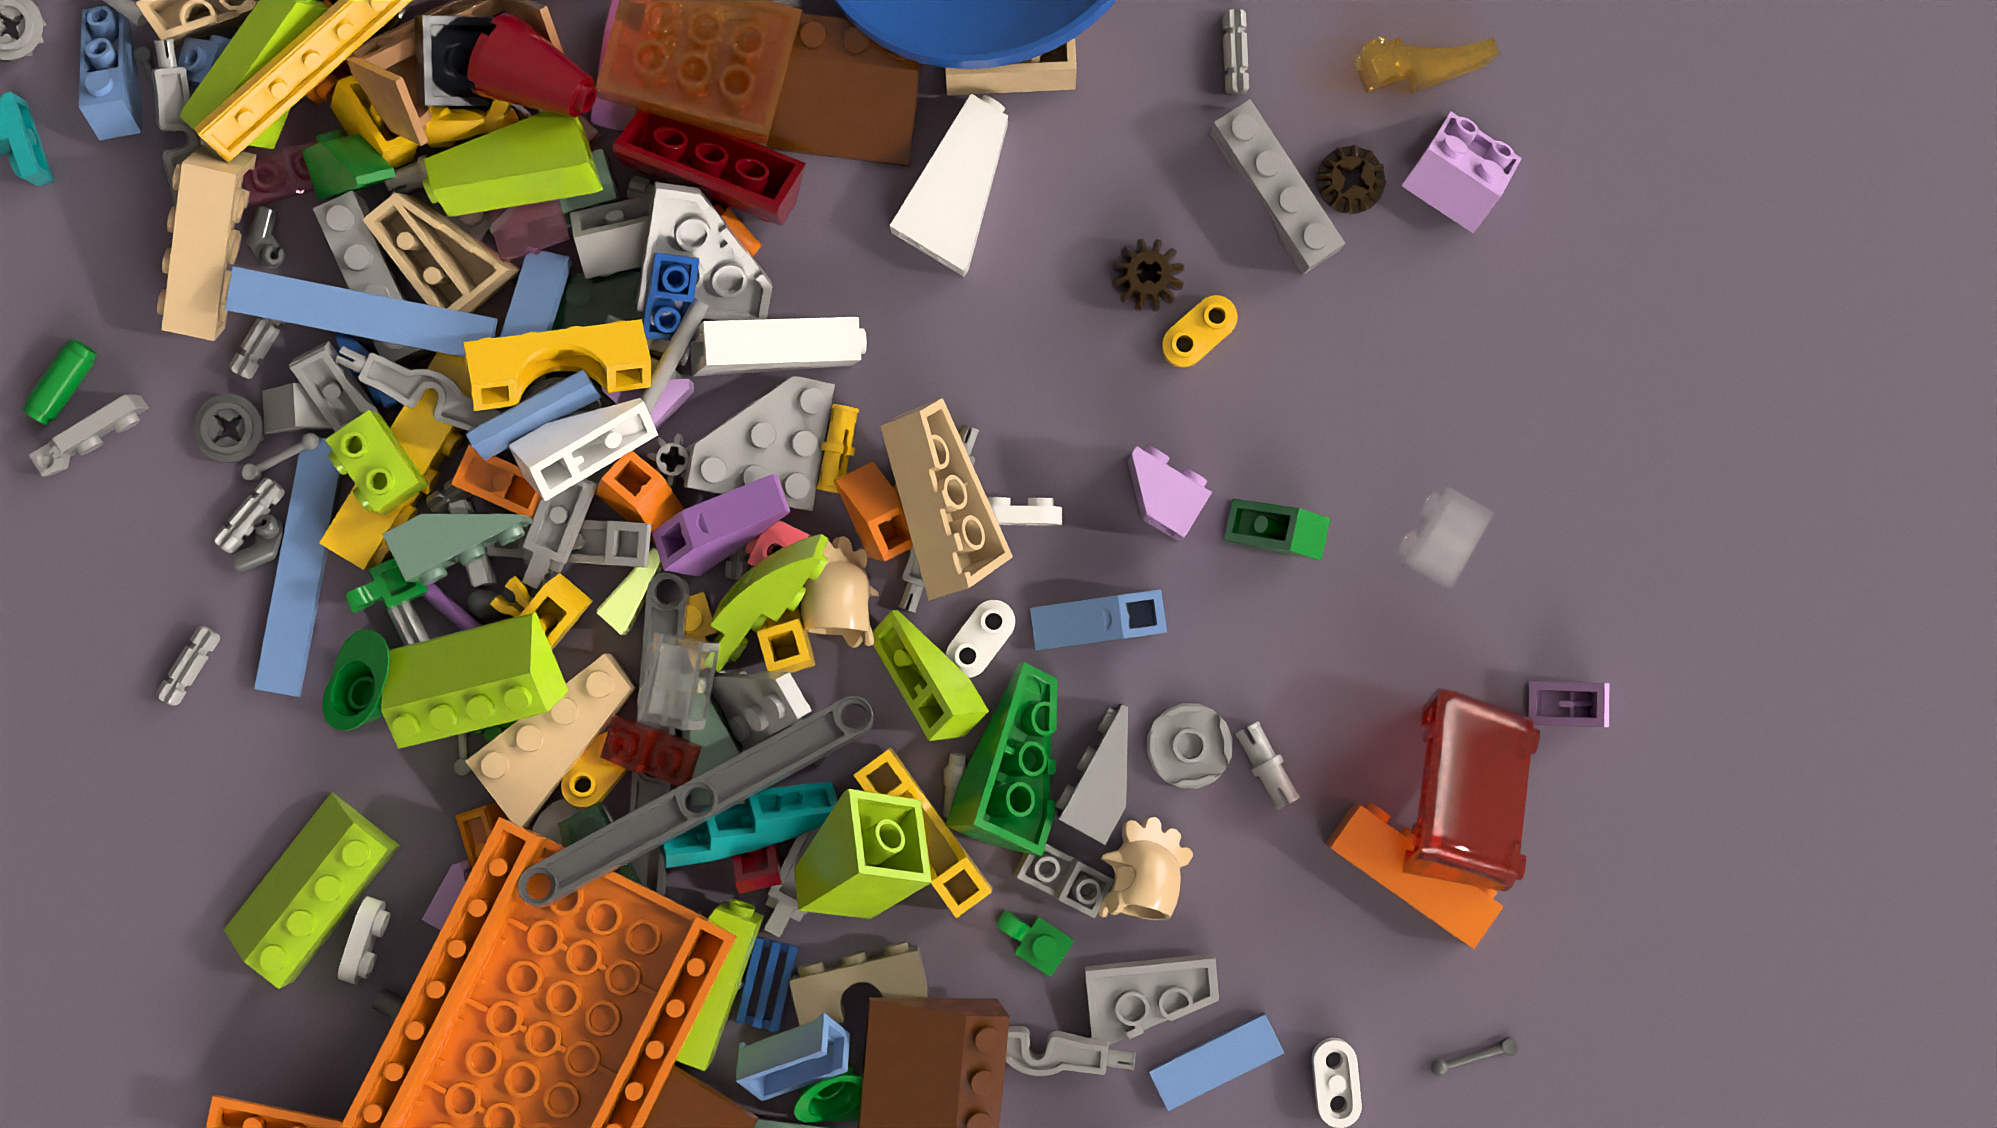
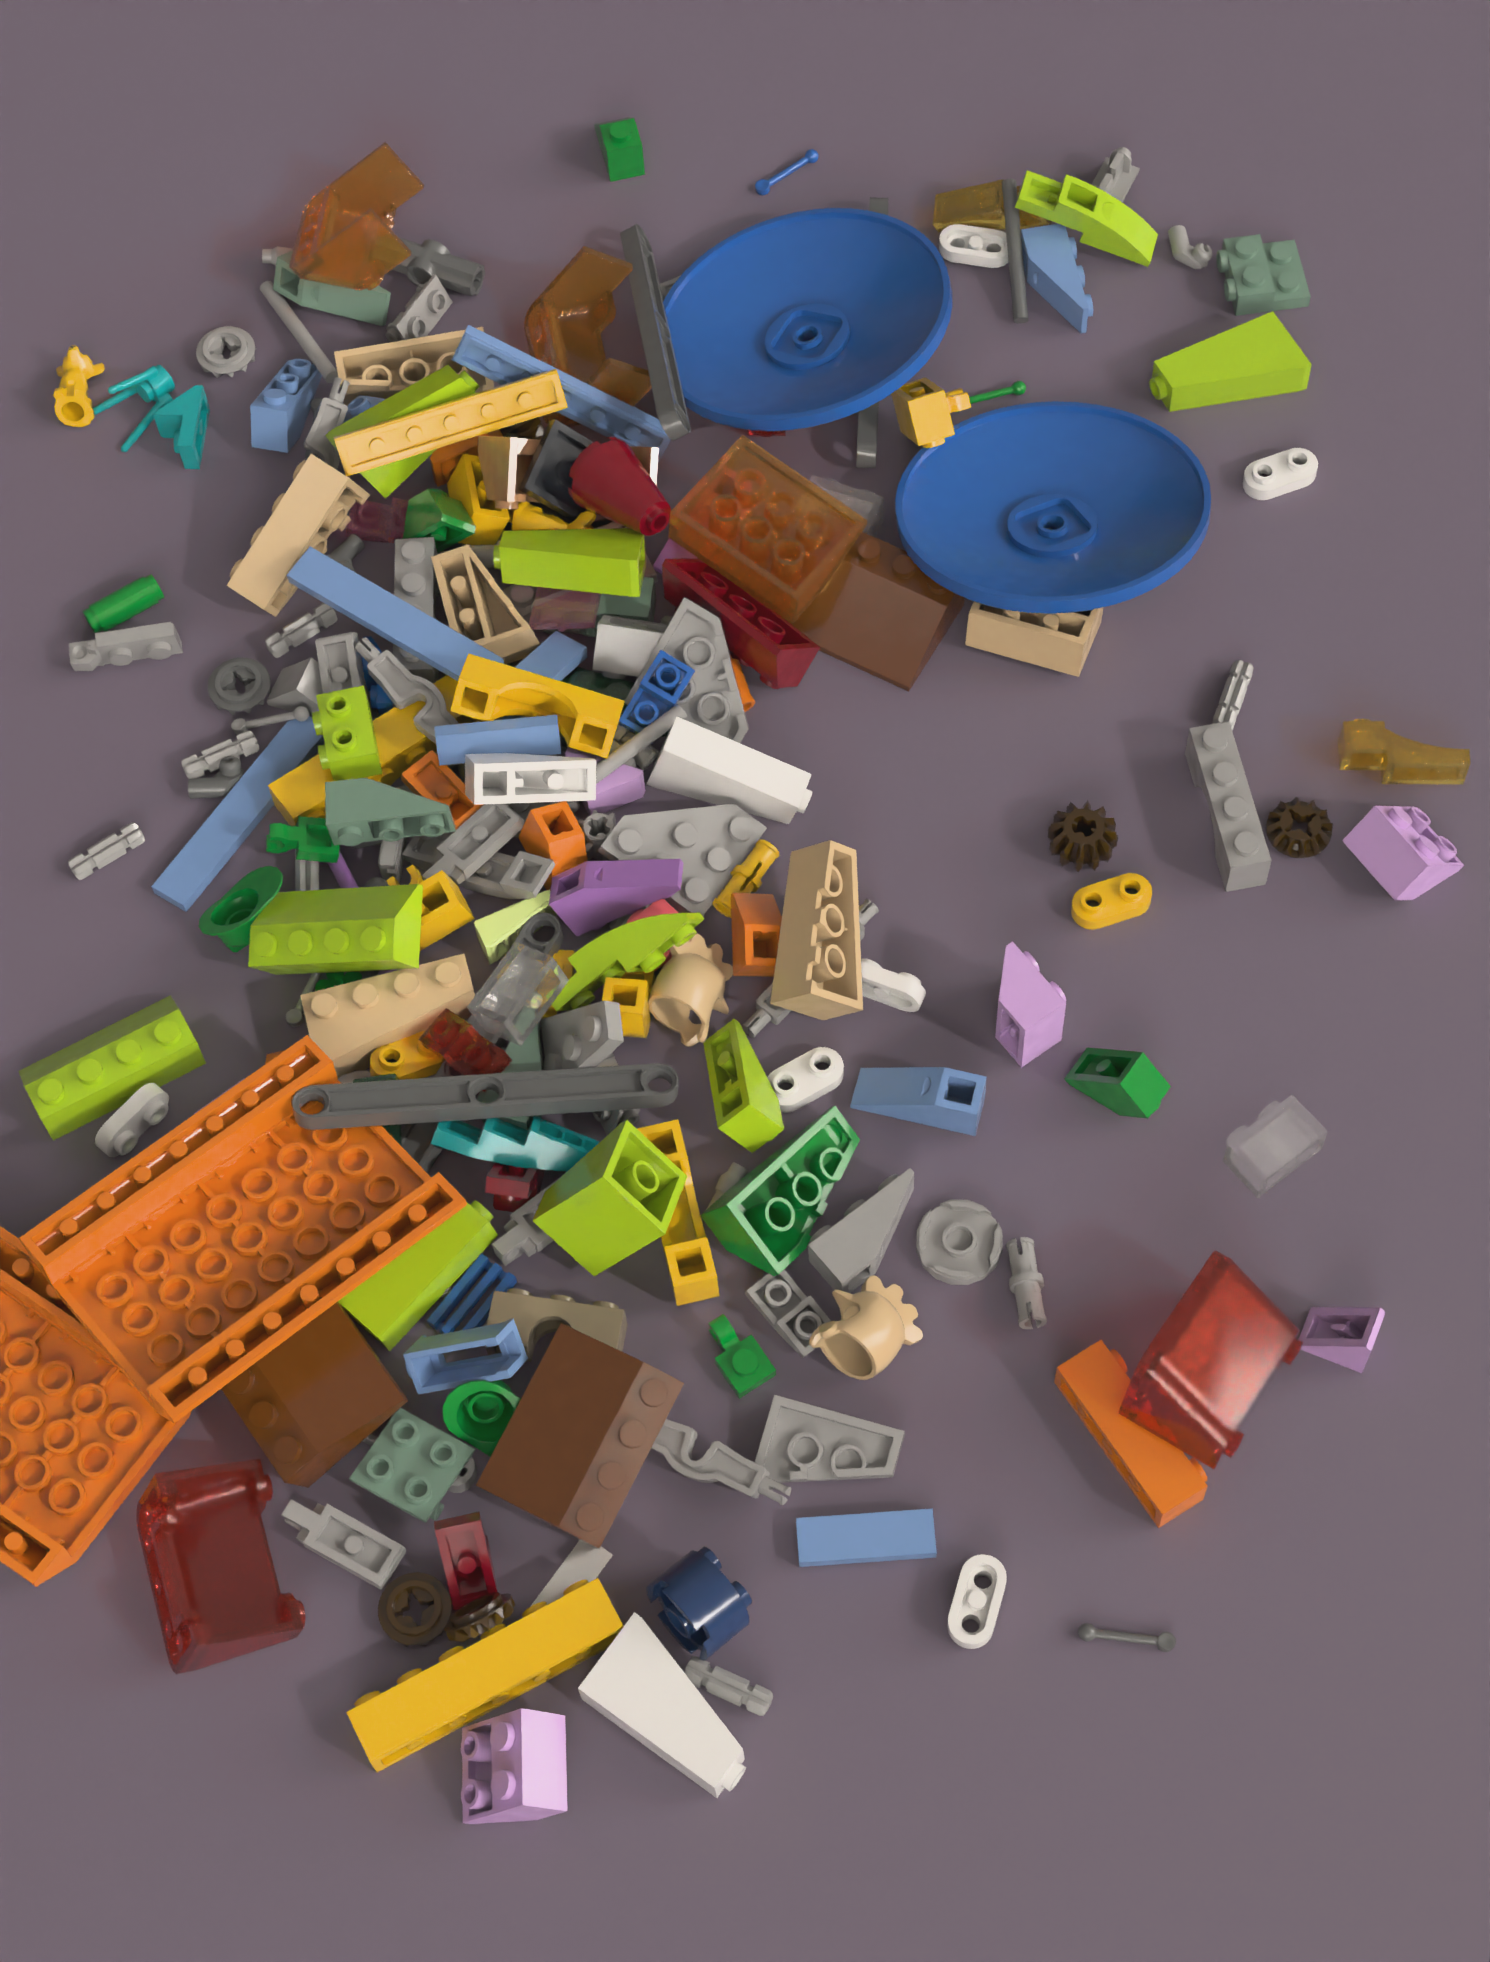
camera: 30 degrees right, 25 degrees down
(953, 190) = (940, 712): white slope -> none

